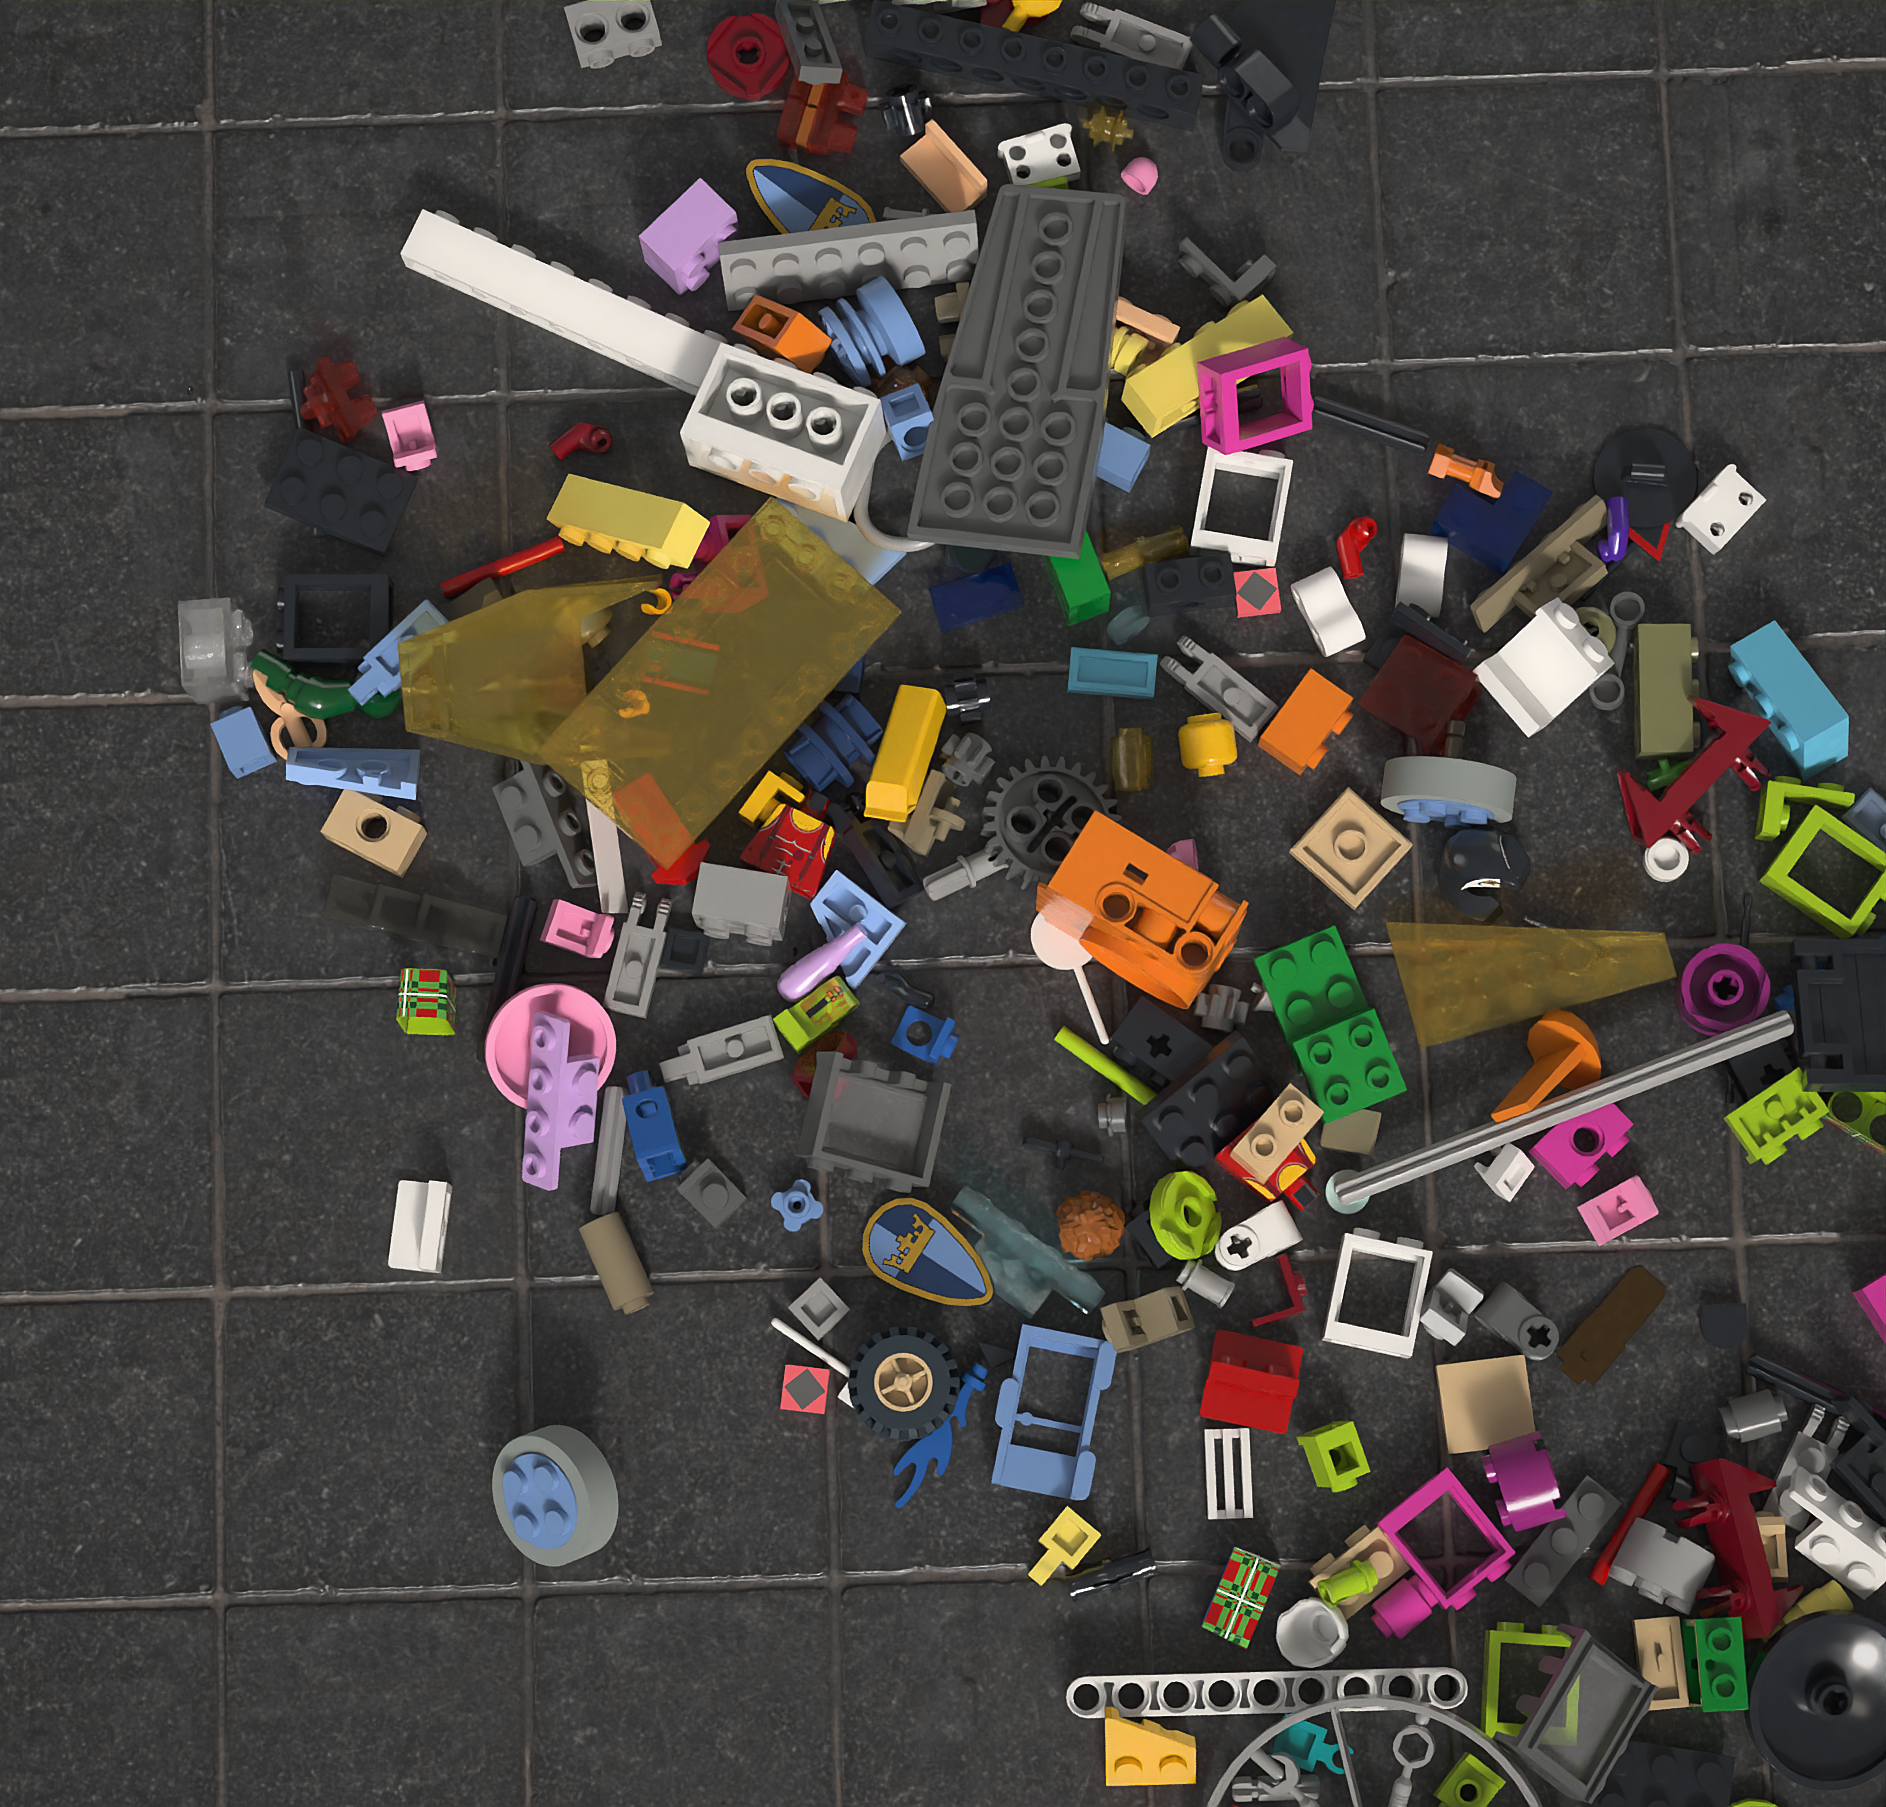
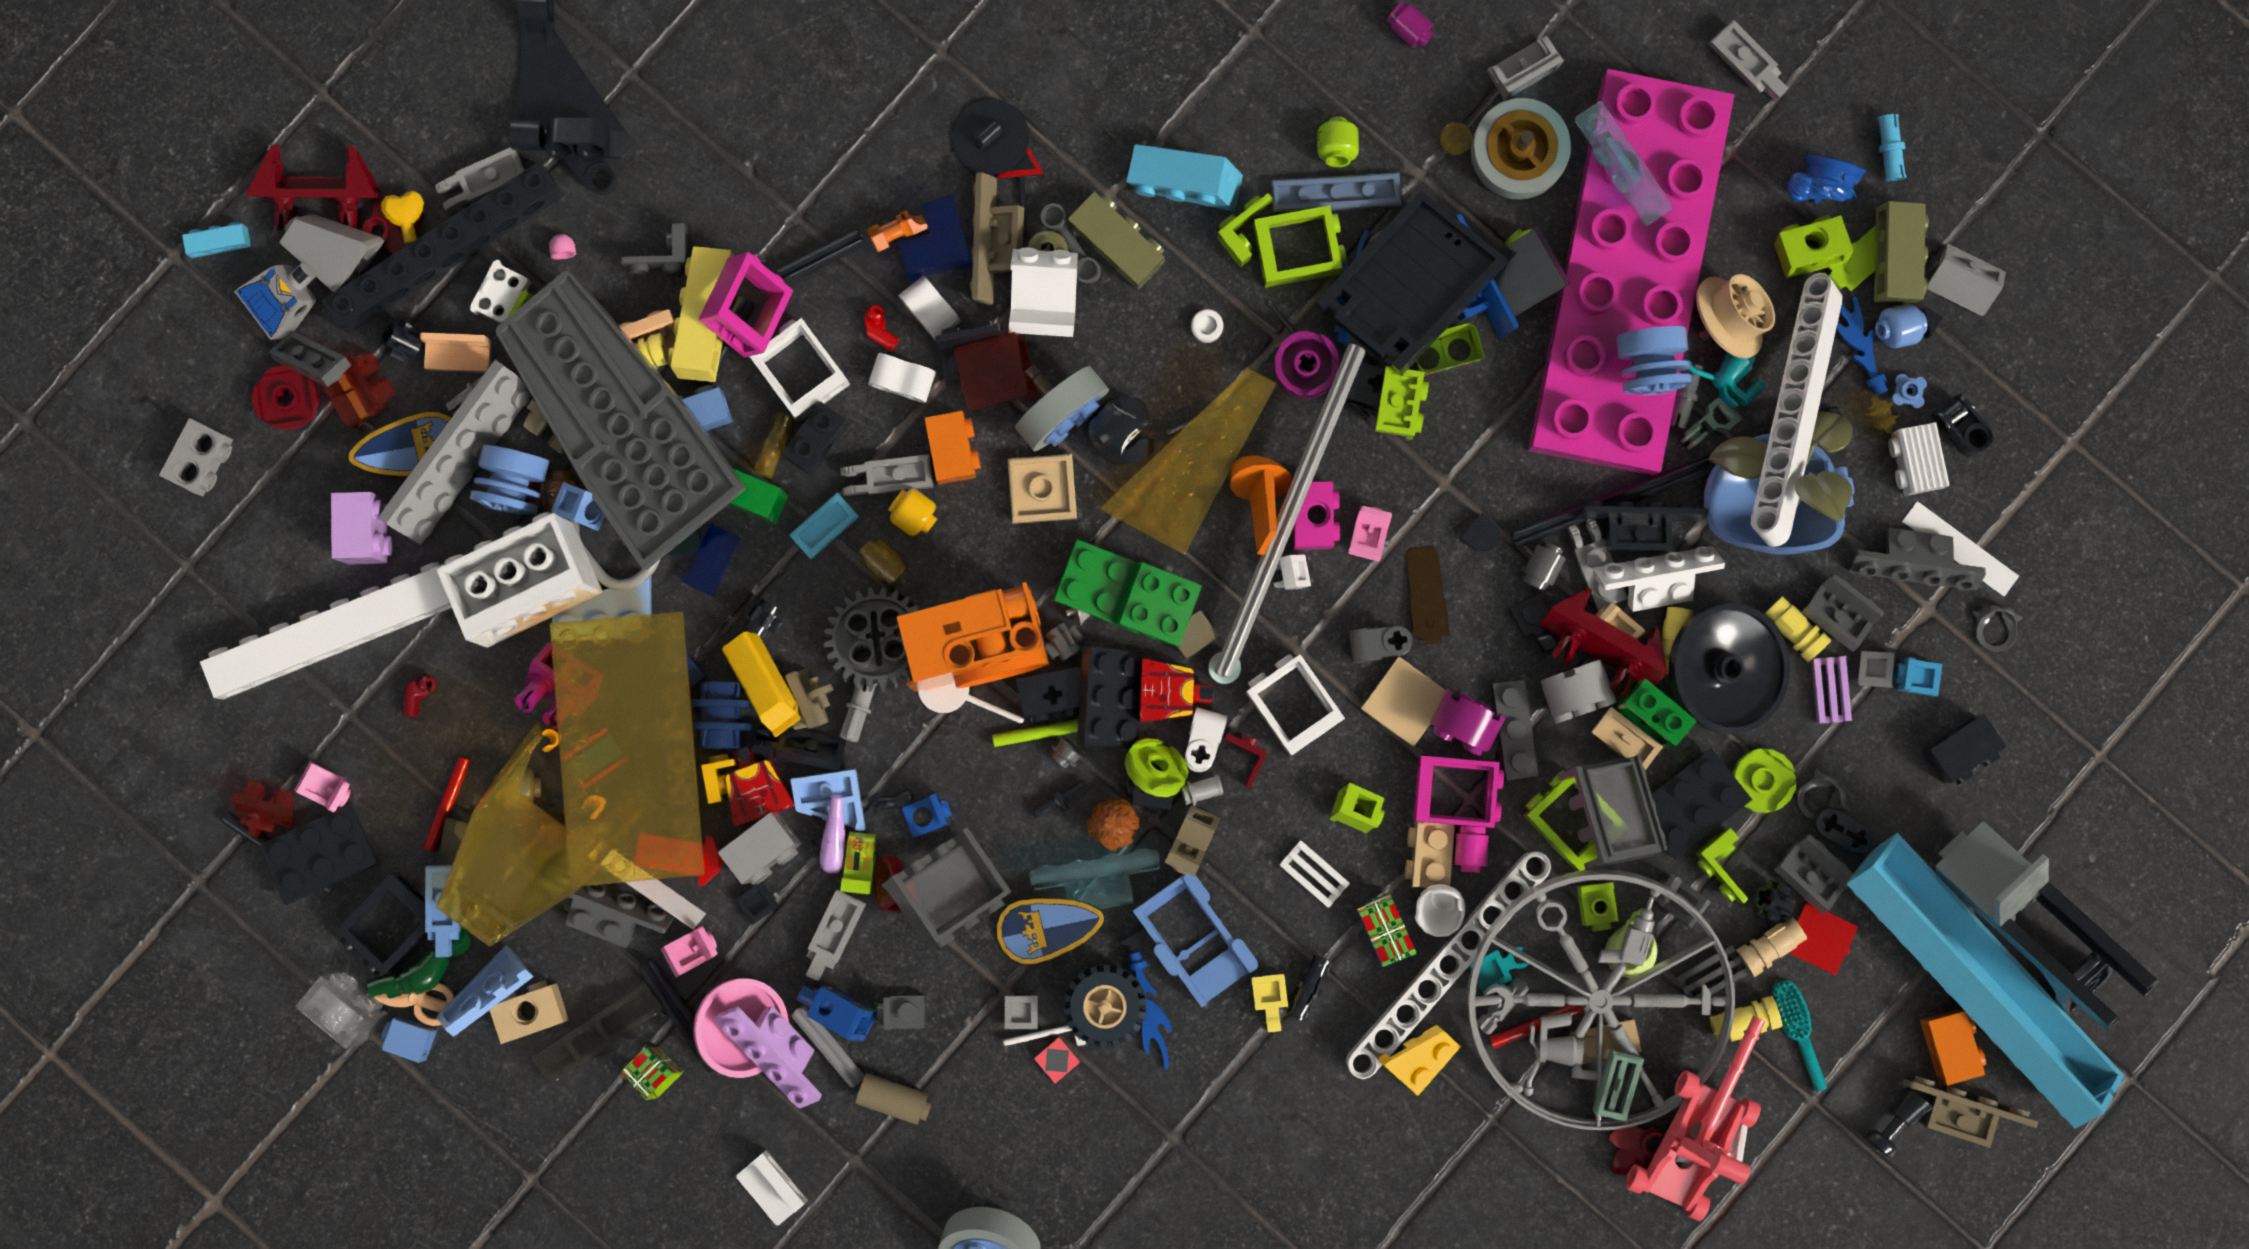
camera: 50 degrees left, 5 degrees up
(628, 522) = (488, 714): light yellow brick -> none
(637, 960) = (737, 933): light grey hinge -> none
(782, 334) = (463, 529): orange brick -> none
(809, 1207) = (945, 976): medium blue plate -> none
(966, 759) = (797, 650): dark grey gear -> none
(1108, 129) = (519, 240): clear yellow wheel -> none
(1127, 624) = (805, 492): clear light blue tile -> none
(1185, 851) = (961, 583): bright pink hinge -> none
(1251, 1381) = (1277, 815): red bracket -> none
(1257, 592) = (854, 405): tile -> none
(1276, 1133) = (1160, 678): tan brick -> none
(1348, 1583) = (1433, 865): lime pin -> none
(1448, 1306) = (1336, 672): light grey bracket -> none
(1618, 530) = (1003, 176): dark purple arm -> none
(1639, 1509) = (1536, 676): red bar -> none
(1652, 818) = (1180, 312): dark red hose -> none
(1665, 774) = (1163, 280): bright green piece -> none
(1720, 509) = (1046, 113): white piece -> none

